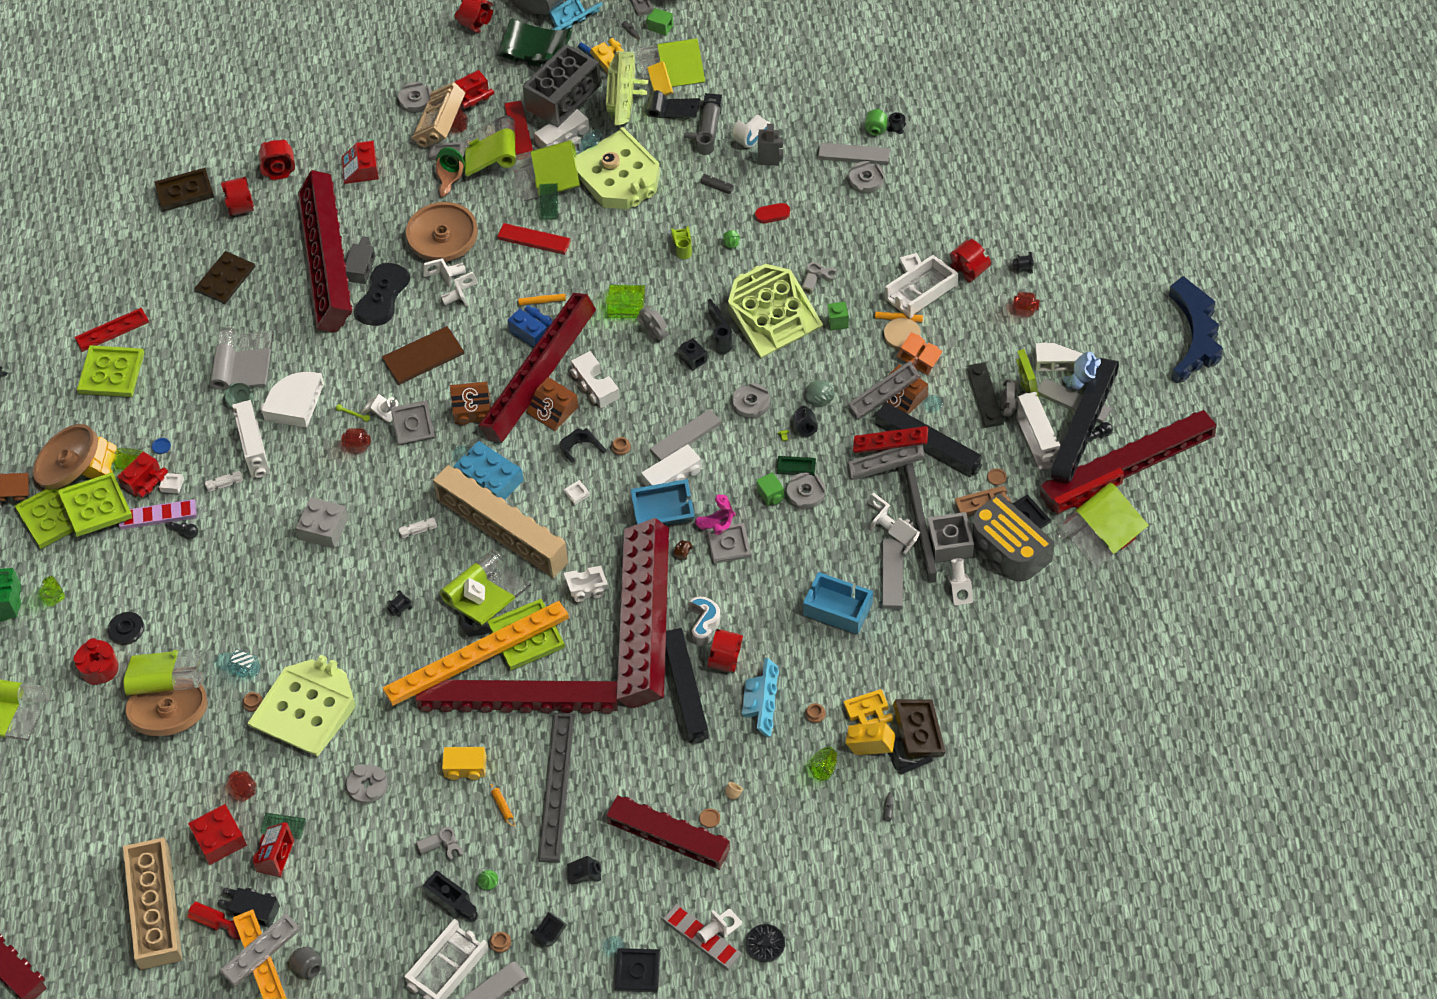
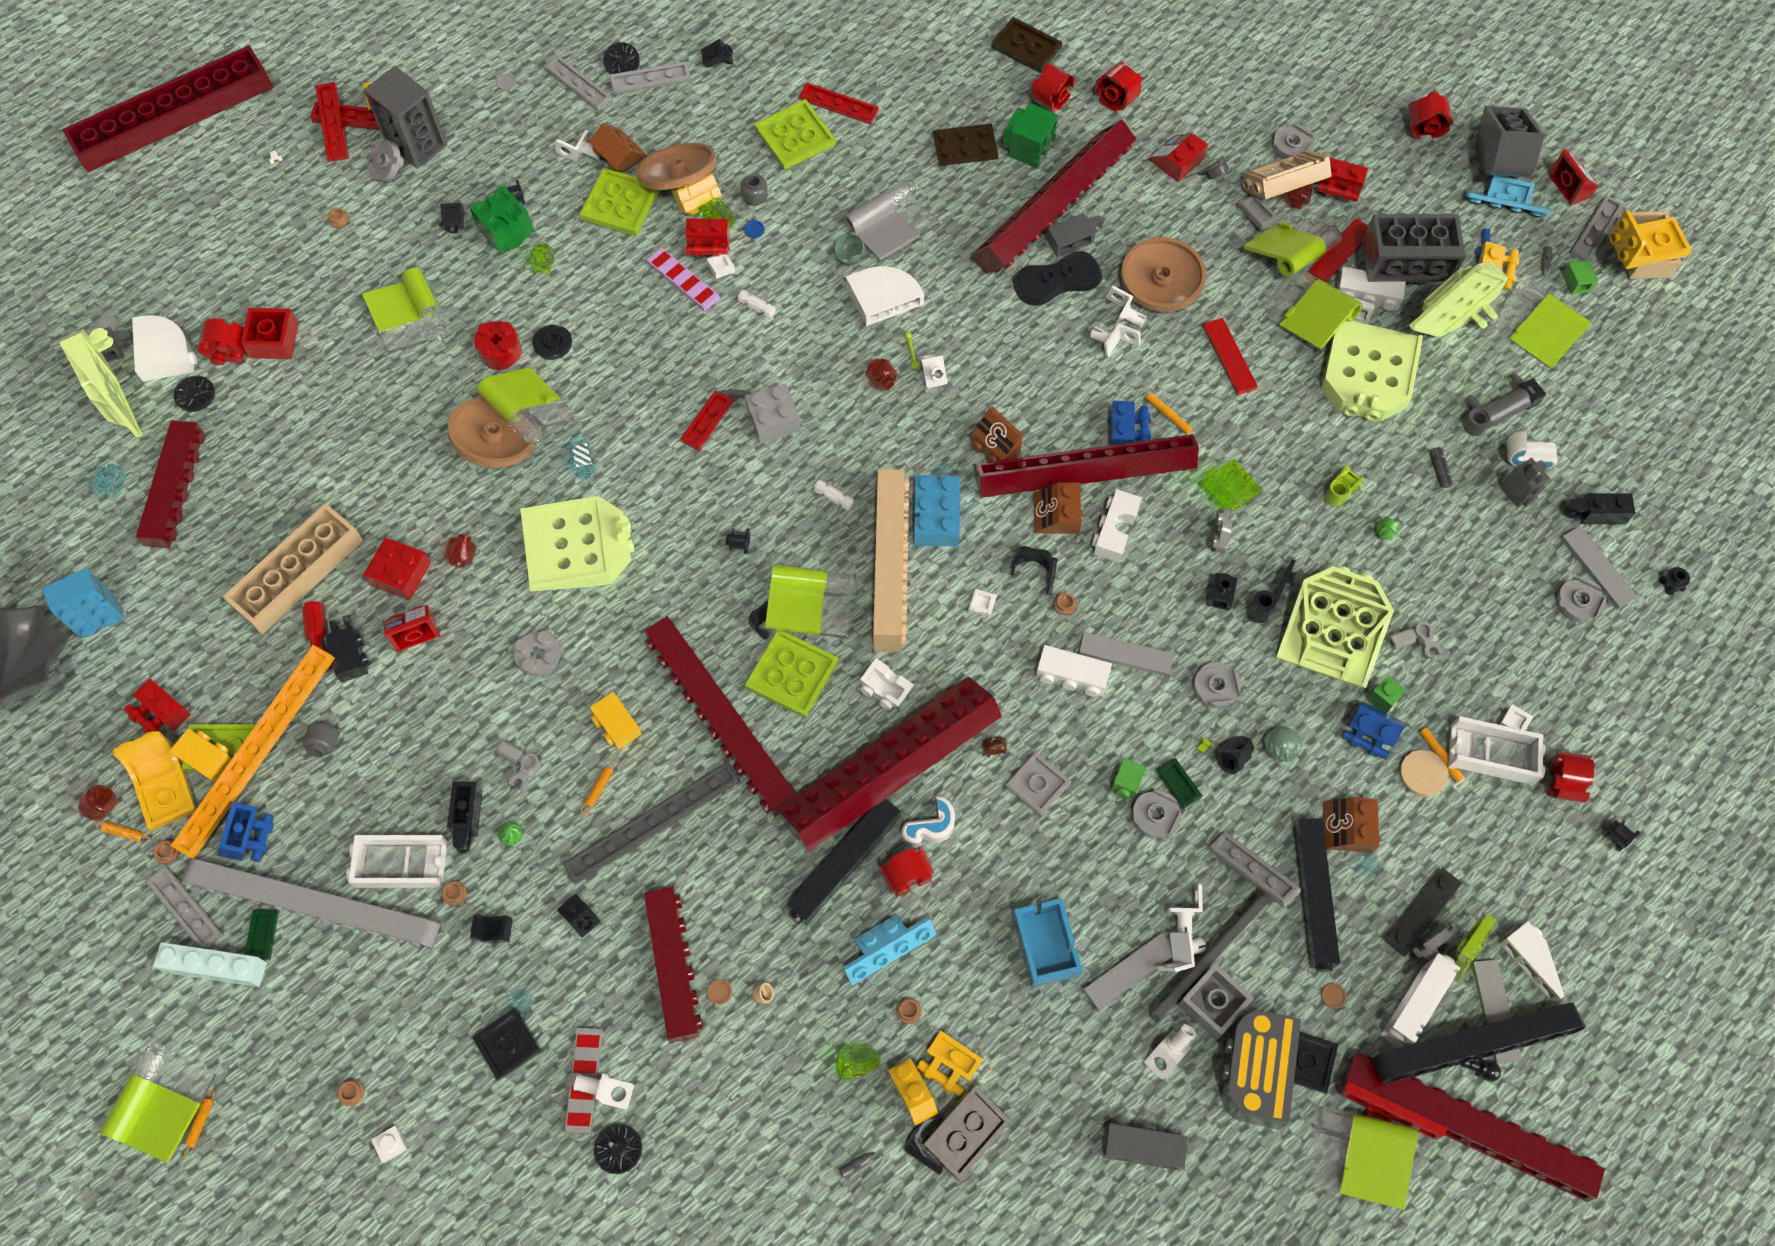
camera: 50 degrees right, 10 degrees up
(94, 504) = (648, 224): lime plate -> none
(133, 422) = (754, 189): none -> dark grey head
(188, 530) = (684, 315): black bar -> none
(251, 439) = (808, 291): white door -> none
(252, 701) = (552, 495): medium nougat plate -> none
(260, 950) = (294, 692): light grey tile -> none
(261, 232) = (1030, 134): none -> green piece
(281, 539) = (735, 393): none -> dark grey helmet
(286, 569) = (707, 420): none -> red tile
(295, 824) = (447, 615): clear green tile -> none
(392, 149) = (1217, 168): none -> dark grey piece
(412, 422) = (937, 405): light grey tile -> none
(423, 355) = (1020, 360): reddish brown tile -> none
(448, 168) = (1238, 228): piece -> none
(474, 591) = (794, 594): white plate -> none
(475, 653) = (733, 645): light orange plate -> none
(532, 43) = (1444, 187): dark green panel -> none
(549, 201) = (1280, 337): clear green tile -> none
(591, 138) = (1384, 319): clear light blue plate -> none
(610, 160) = (1373, 354): tan tile -> none
(660, 78) = (1511, 327): yellow tile -> none
(661, 107) = (1483, 354): black door -> none
(664, 502) = (1026, 690): dark azure piece -> none
(713, 520) = (1066, 749): dark pink helmet -> none
(772, 213) = (1455, 543): red tile -> none
(820, 123) = (1602, 508): none -> black hinge
(851, 333) = (1377, 725): none -> blue brick
(876, 122) = (1655, 560): bright green head -> none
(884, 390) = (1335, 806): light grey tile -> none
(890, 439) = (1278, 857): red bracket -> none
(921, 355) = (1411, 808): orange piece -> none
(974, 501) = (1289, 1002): medium nougat plate -> none
(1006, 635) = (1145, 1145): none -> dark grey brick
(1025, 303) = (1571, 873): clear red head -> none
(1084, 371) = (1537, 998): light blue animal -> none
(1204, 330) = (1734, 1066): dark blue arch -> none

